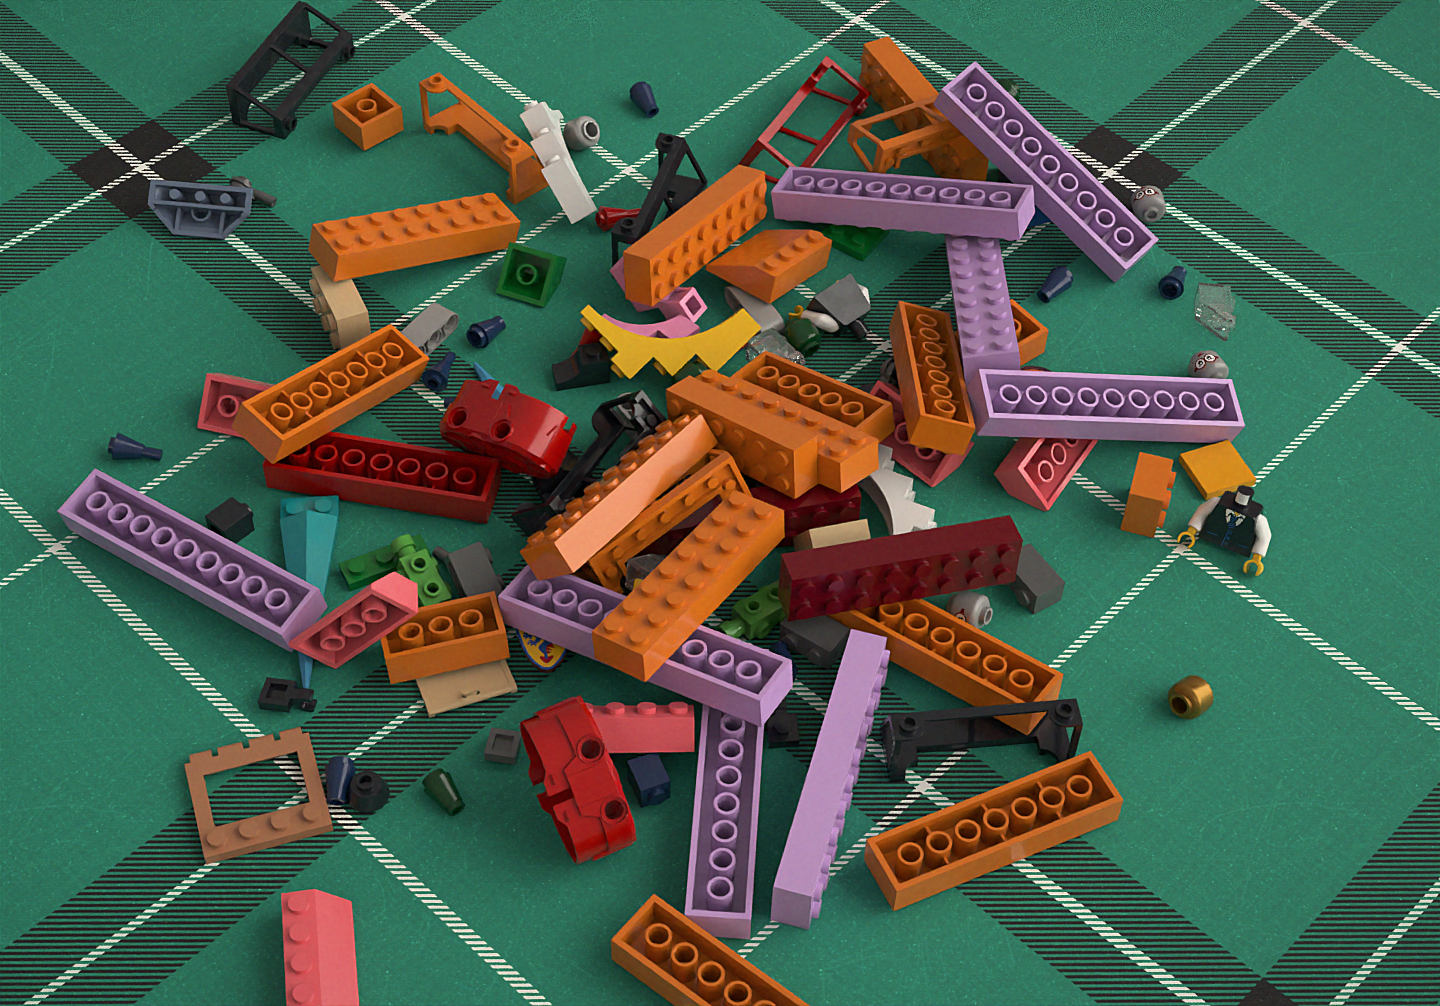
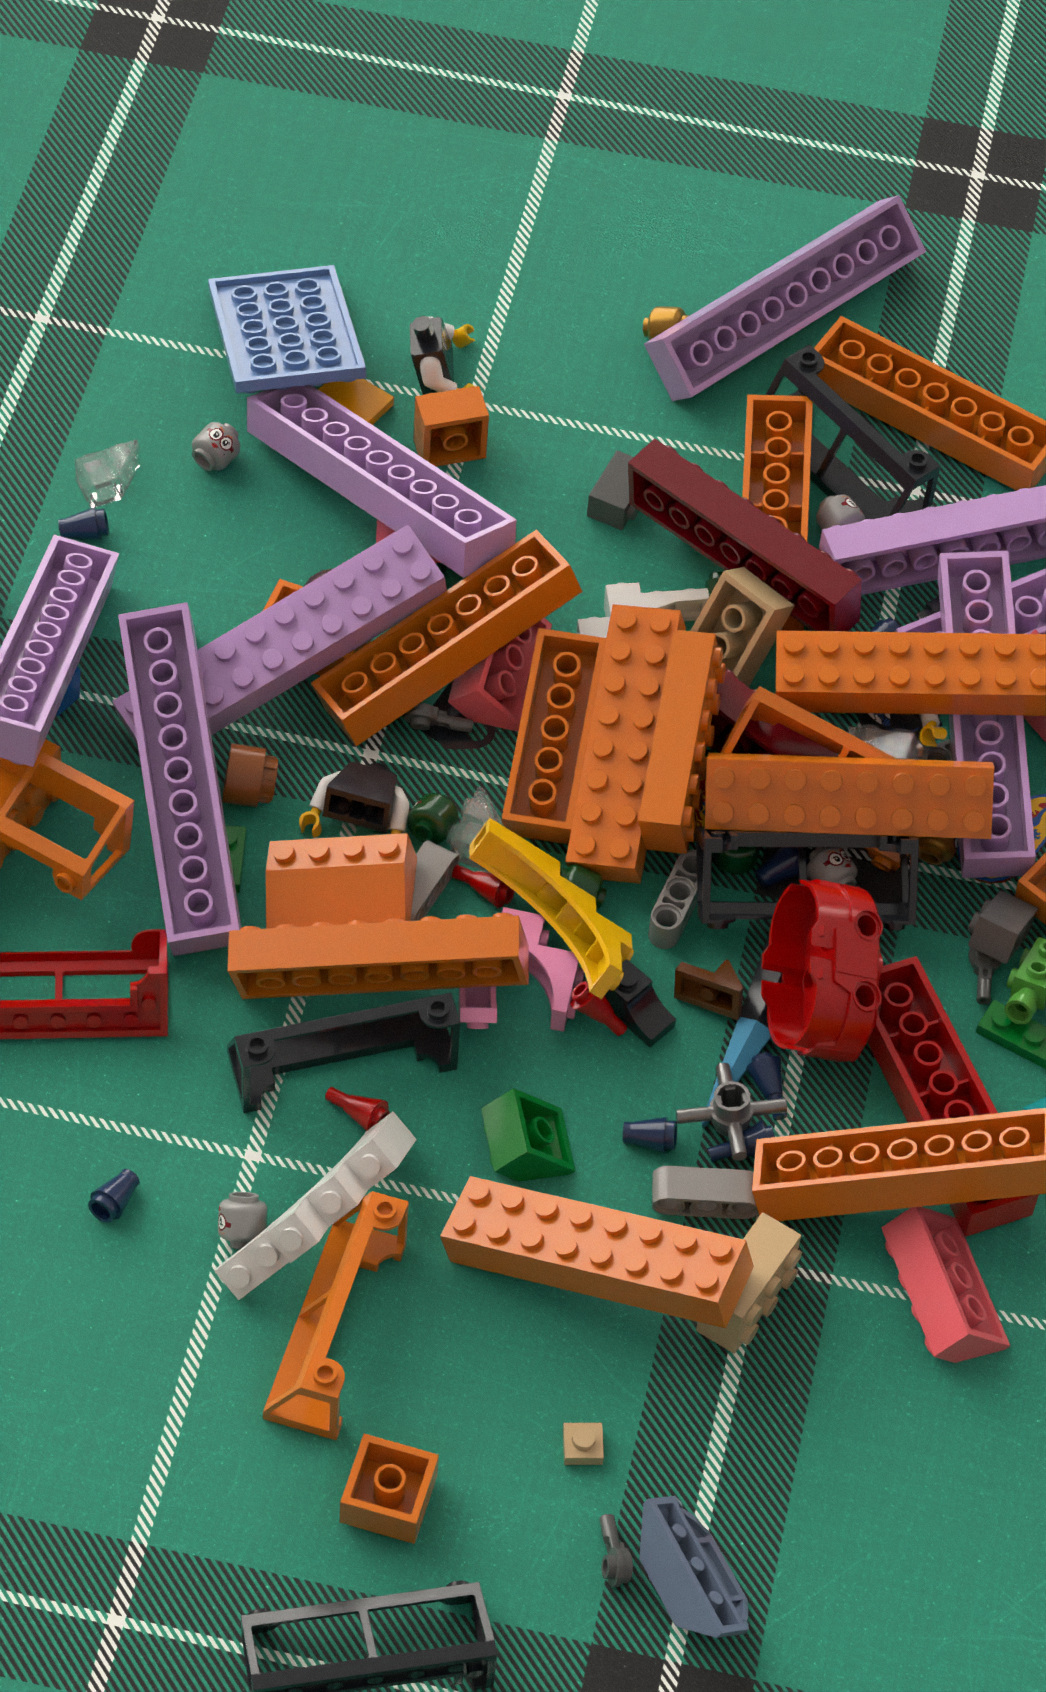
camera: 125 degrees left, 5 degrees up
(324, 211) = (583, 1444): none -> tan plate
(462, 364) = (731, 1110): none -> flat silver bar
(566, 400) = (709, 990): none -> reddish brown slope
(898, 261) = (249, 776): none -> dark orange piece
(913, 697) = (838, 511): none -> light grey head
(1174, 788) = (784, 298): none -> lavender brick
(1302, 444) = (286, 329): none -> medium blue plate

